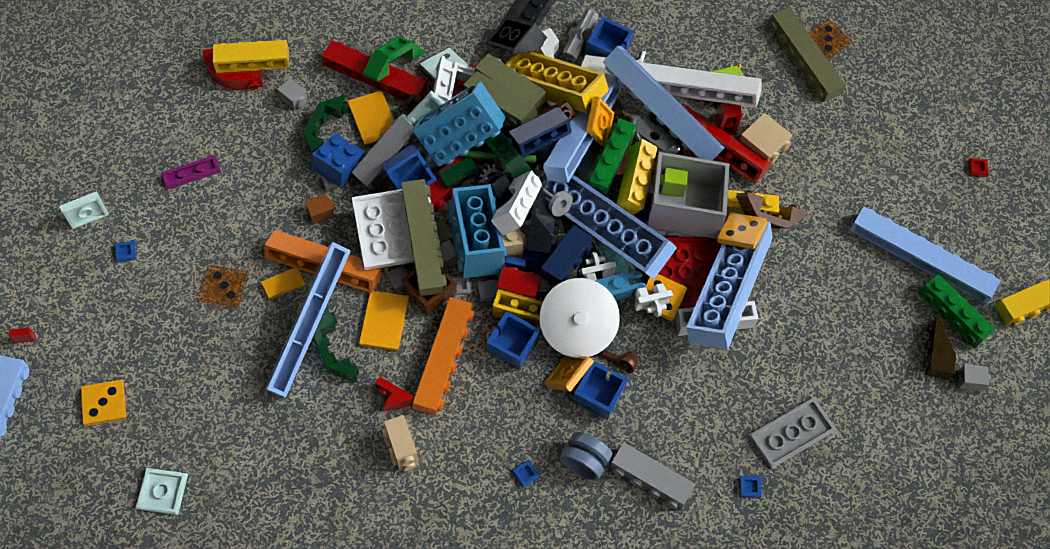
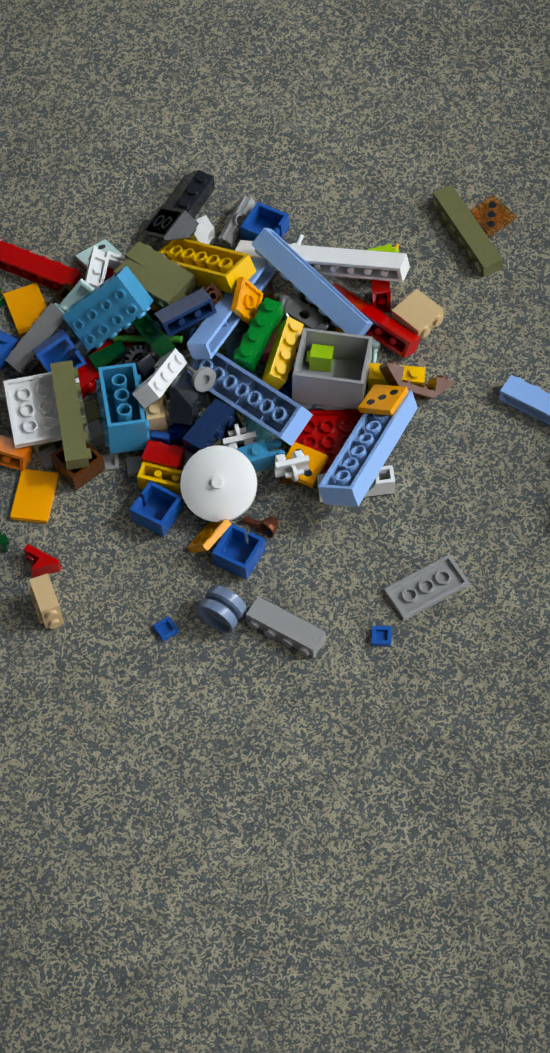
camera: 10 degrees right, 5 degrees down
(379, 62) = (32, 255): green slope -> none
(443, 356) = (90, 525): orange brick -> none

